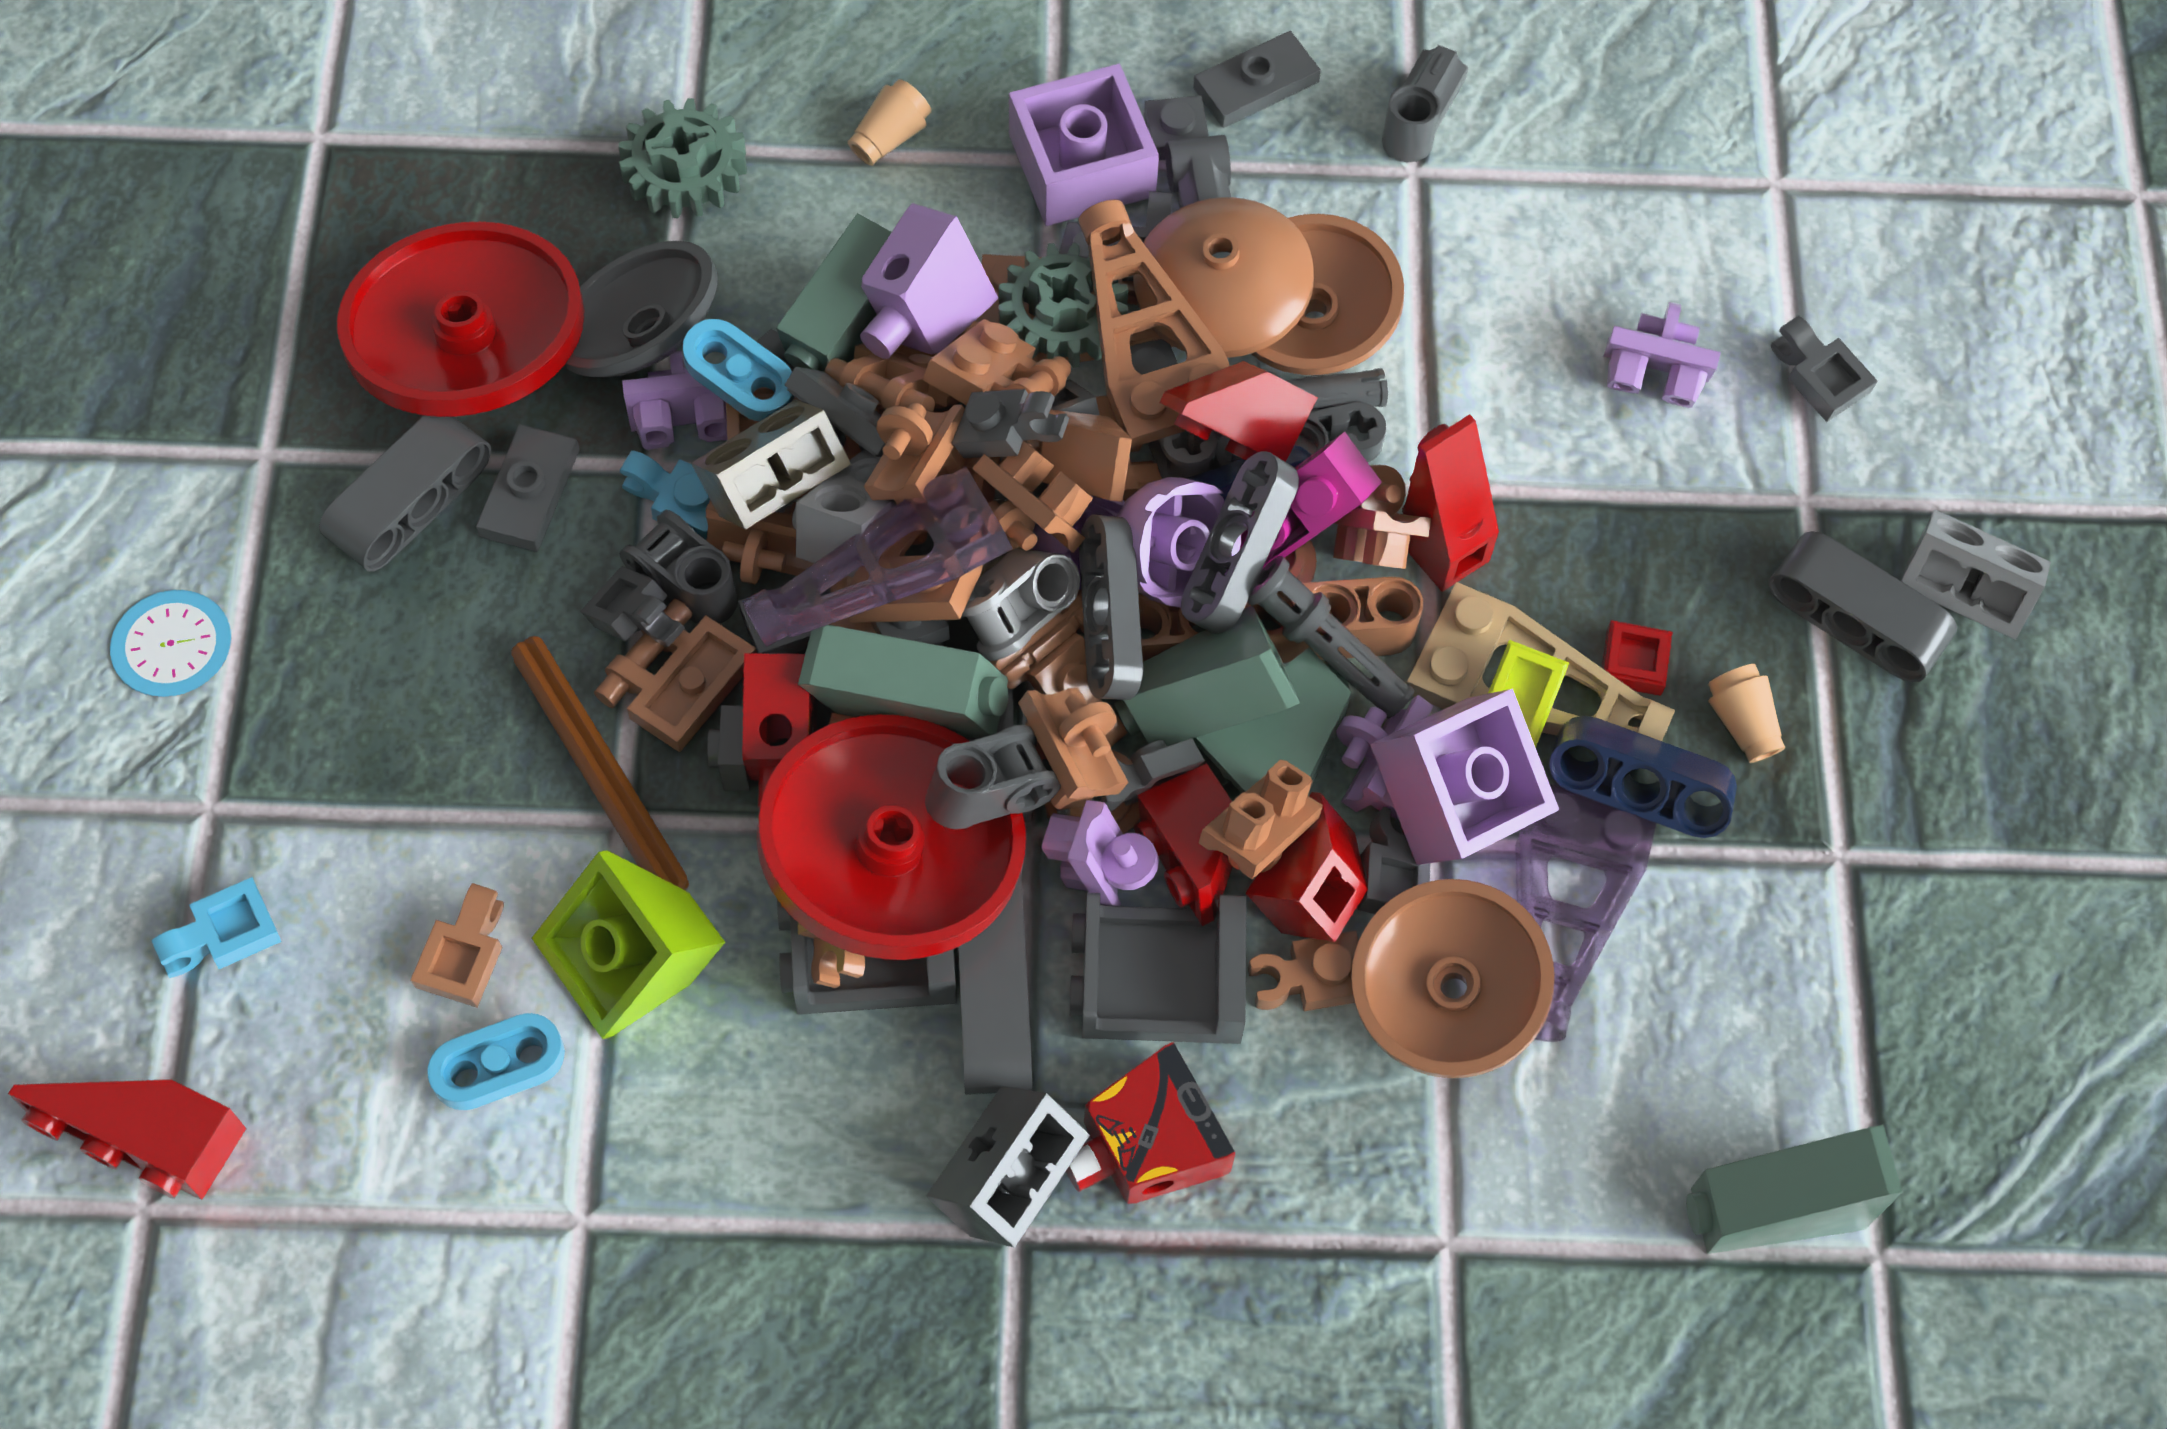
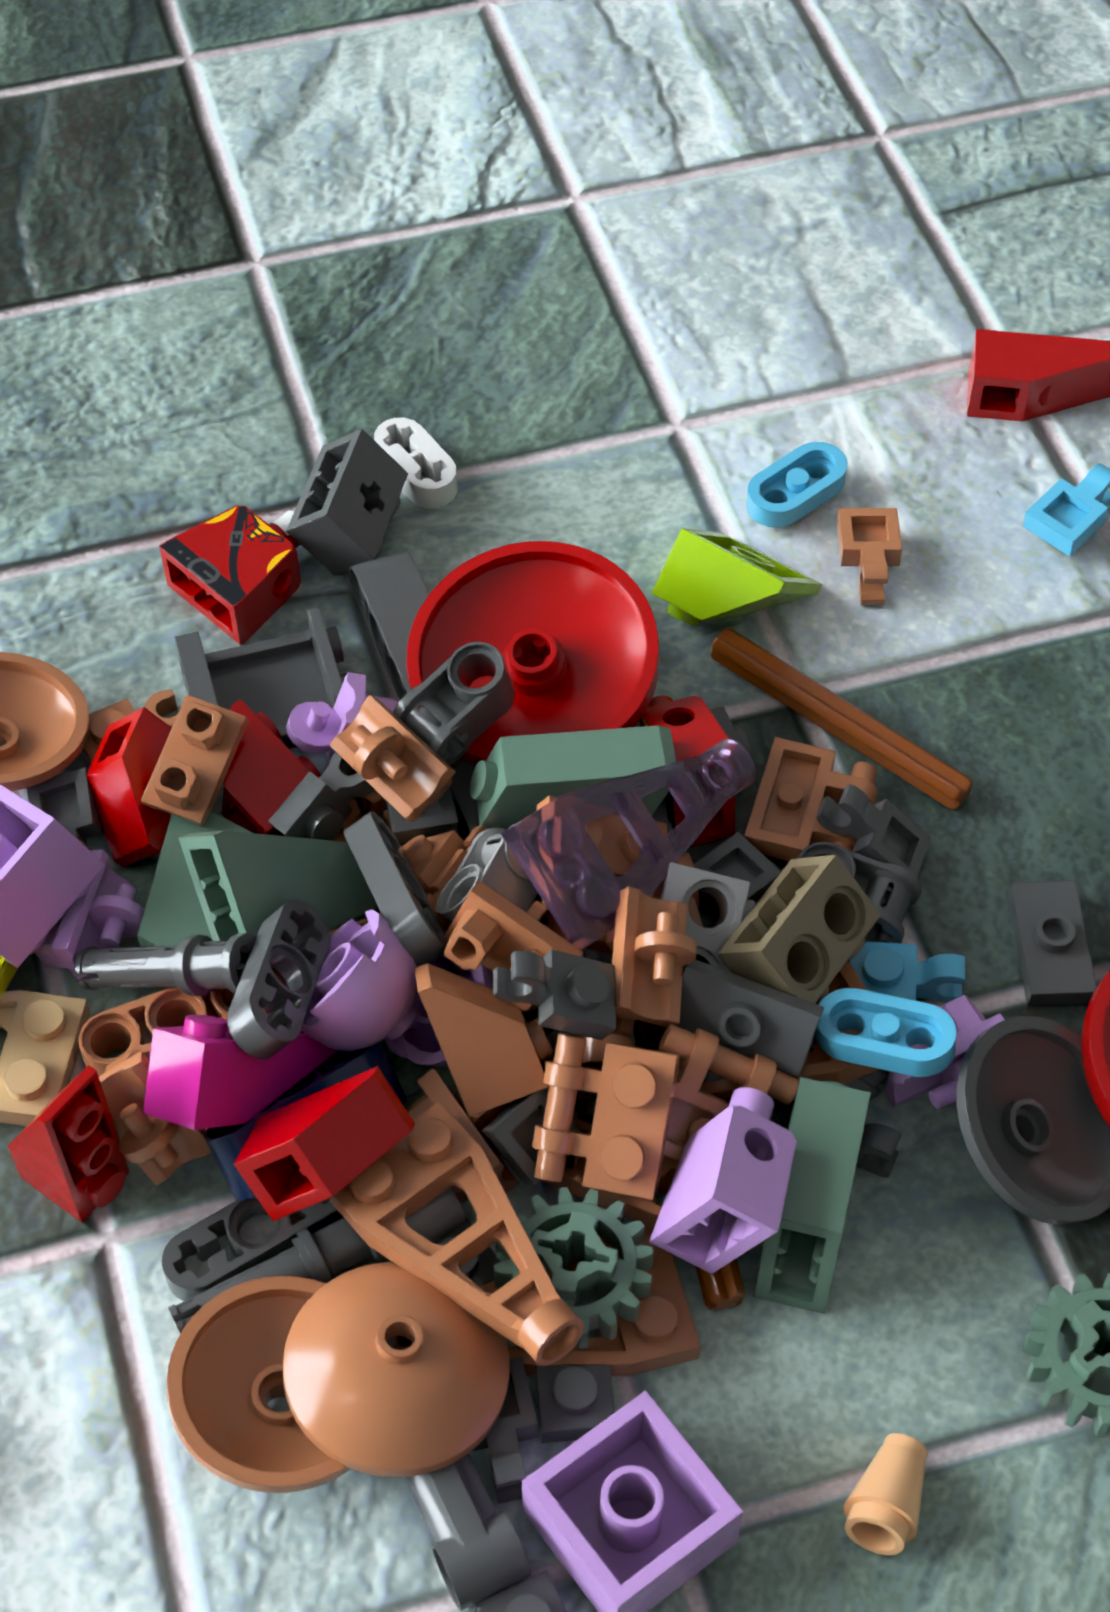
camera: 165 degrees right, 10 degrees down
(891, 1248) = (424, 457): none -> white beam

